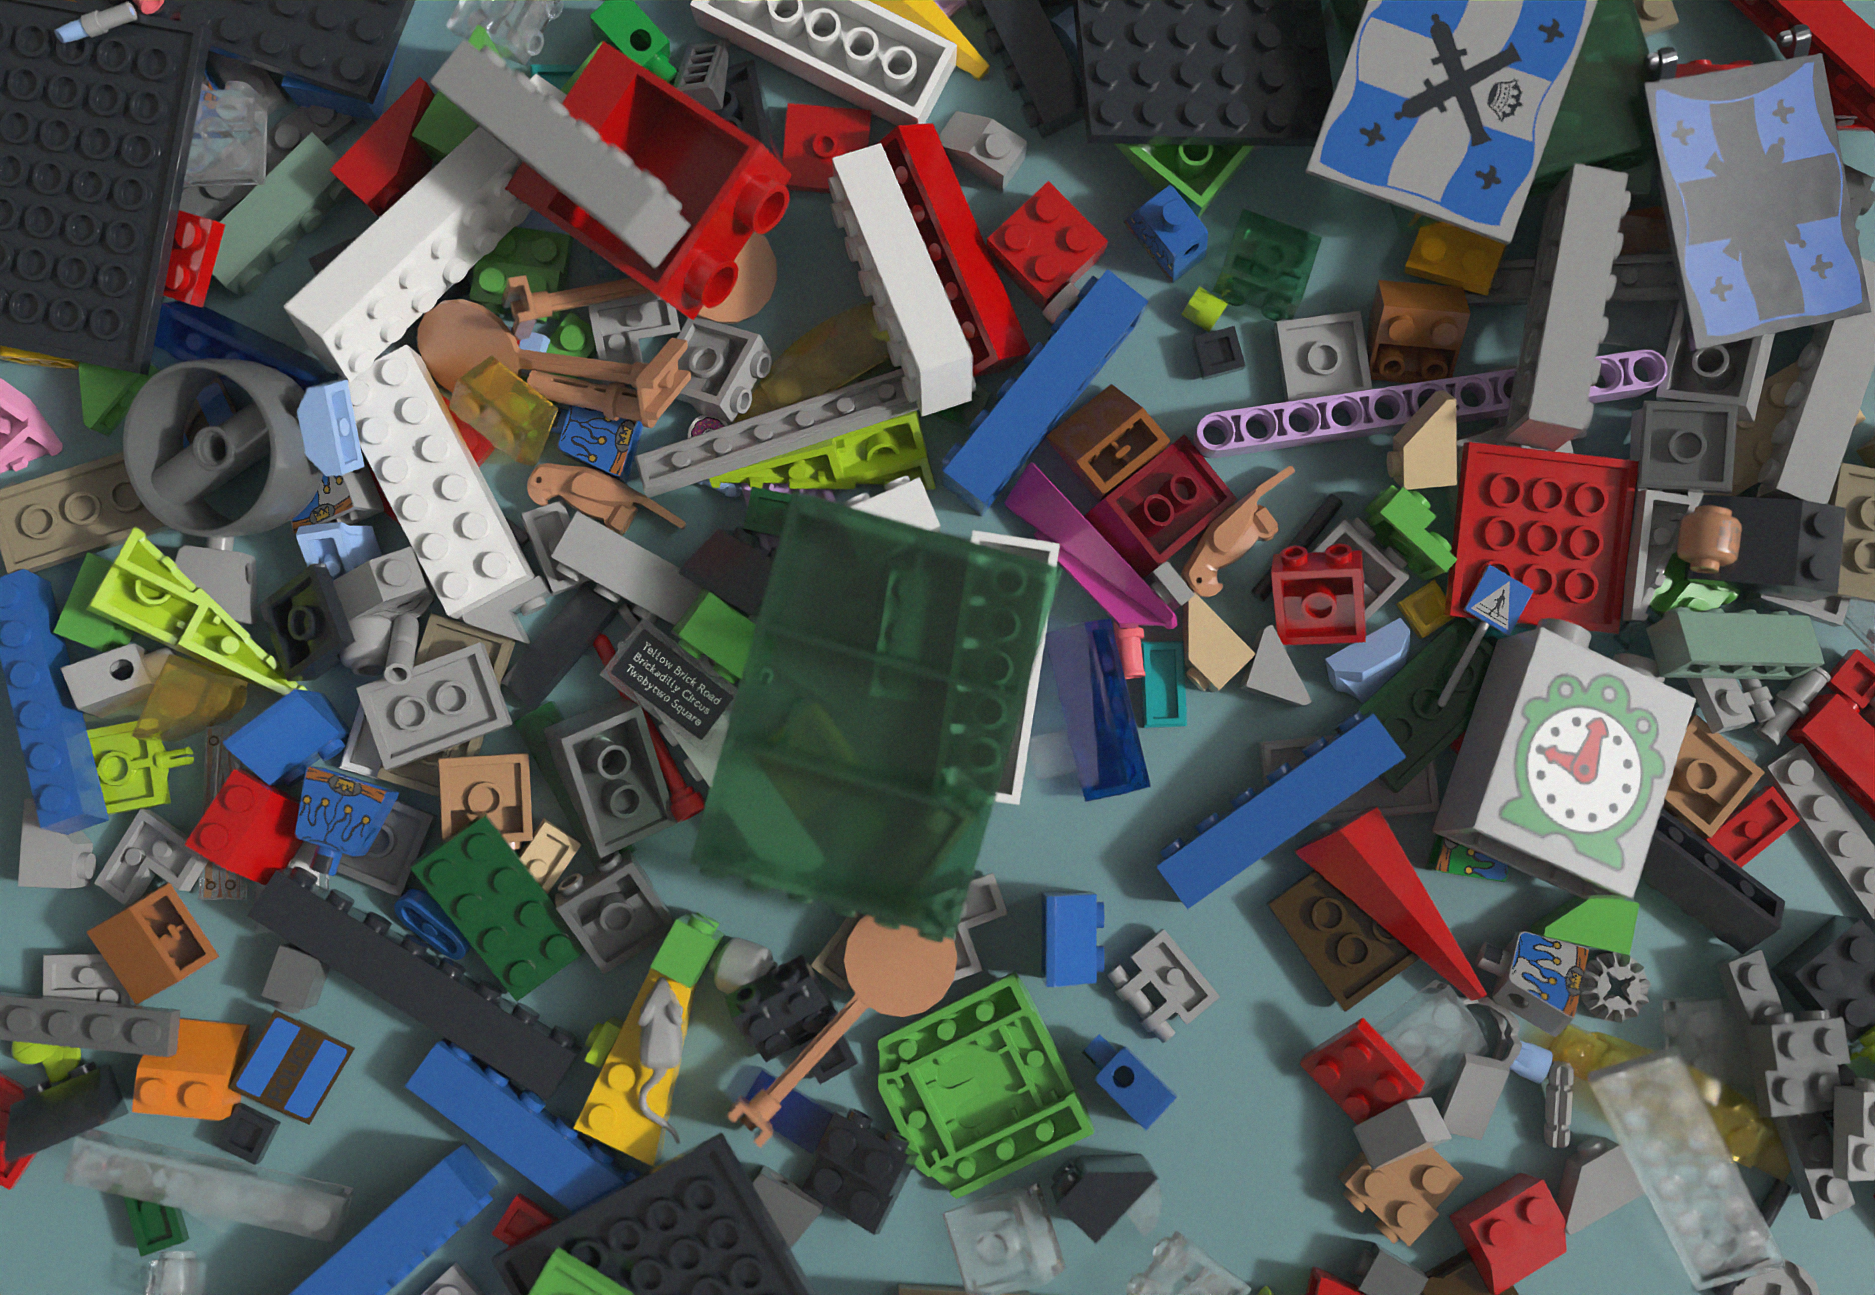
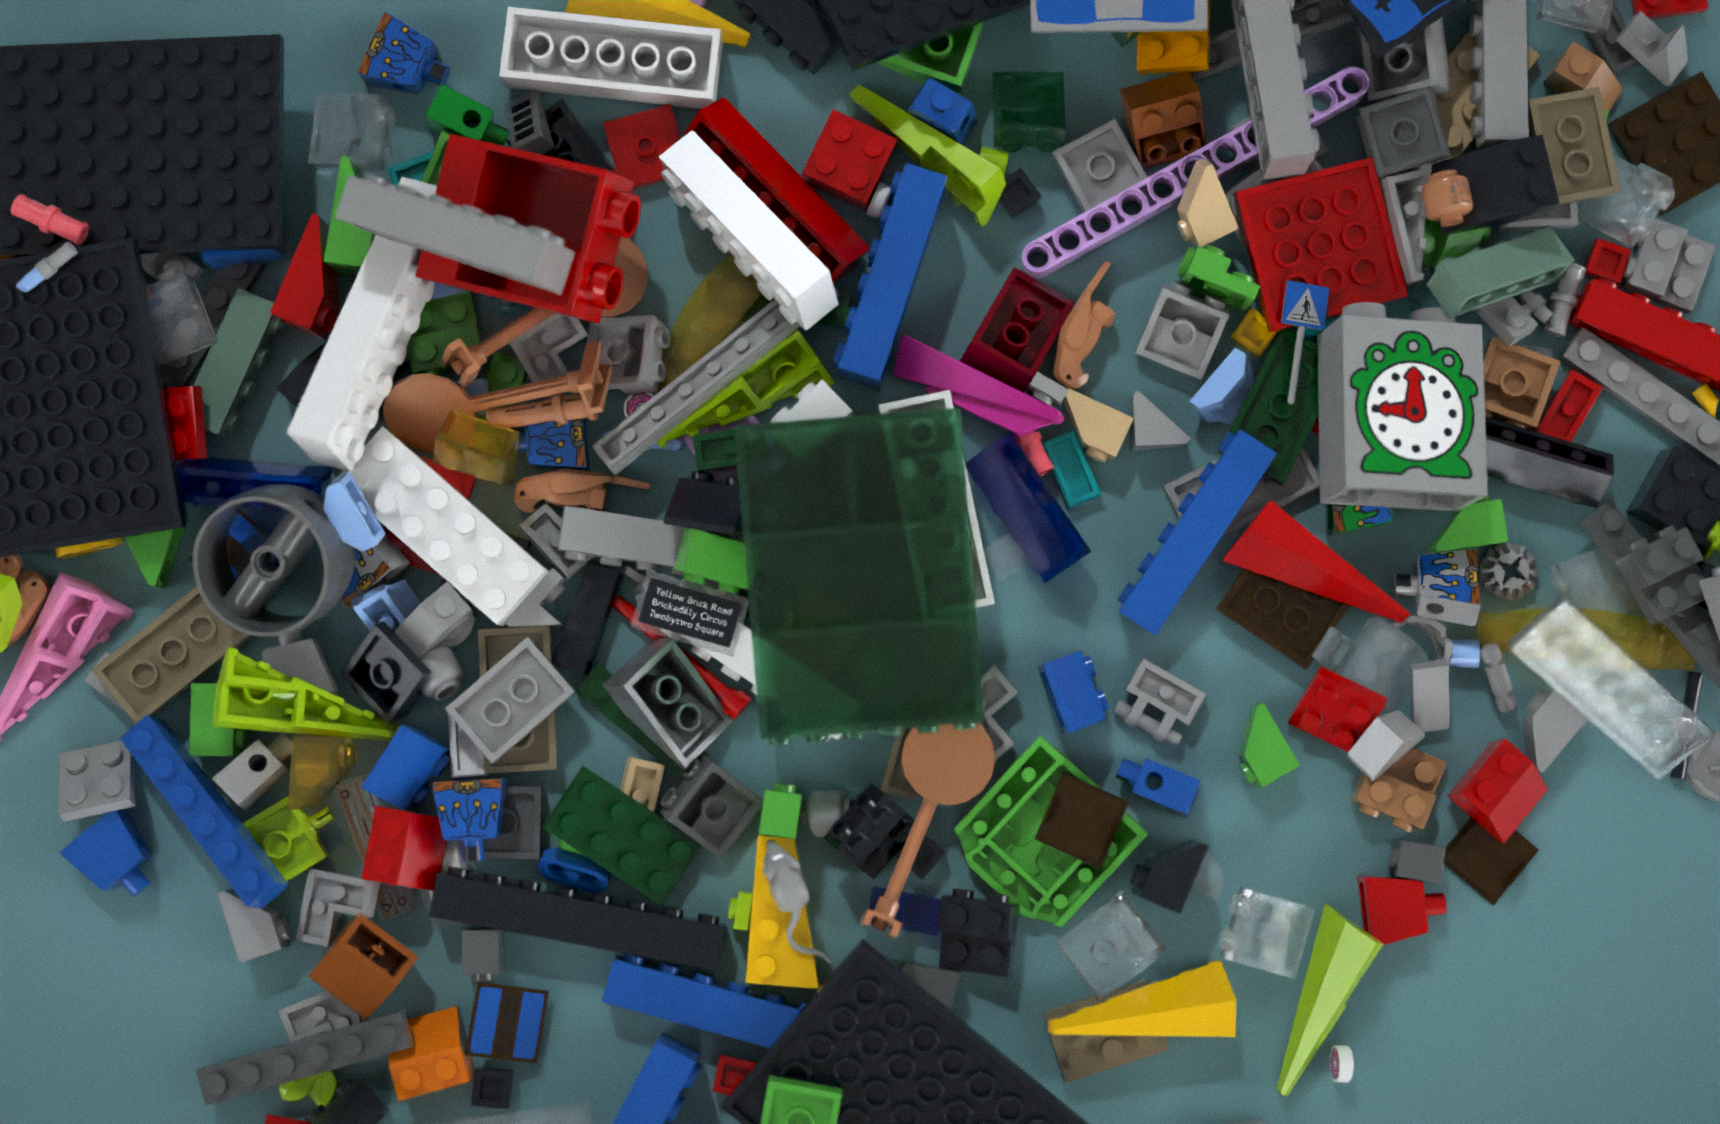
camera: 15 degrees left, 0 degrees up
(402, 650) = (468, 665): light grey piece -> none
(487, 784) = (576, 744): medium nougat plate -> none
(984, 148) = (770, 100): light grey slope -> none
(1025, 1087) = (1082, 820): none -> dark brown piece
(1108, 441) = (956, 295): dark orange slope -> none
(1174, 314) = (969, 176): none -> lime wedge
(1262, 1084) = (1264, 749): none -> bright green slope
(1303, 538) = (1135, 322): black bar -> none
(1319, 595) = (1165, 354): red plate -> none
(1382, 1001) = (1333, 649): none -> clear tile

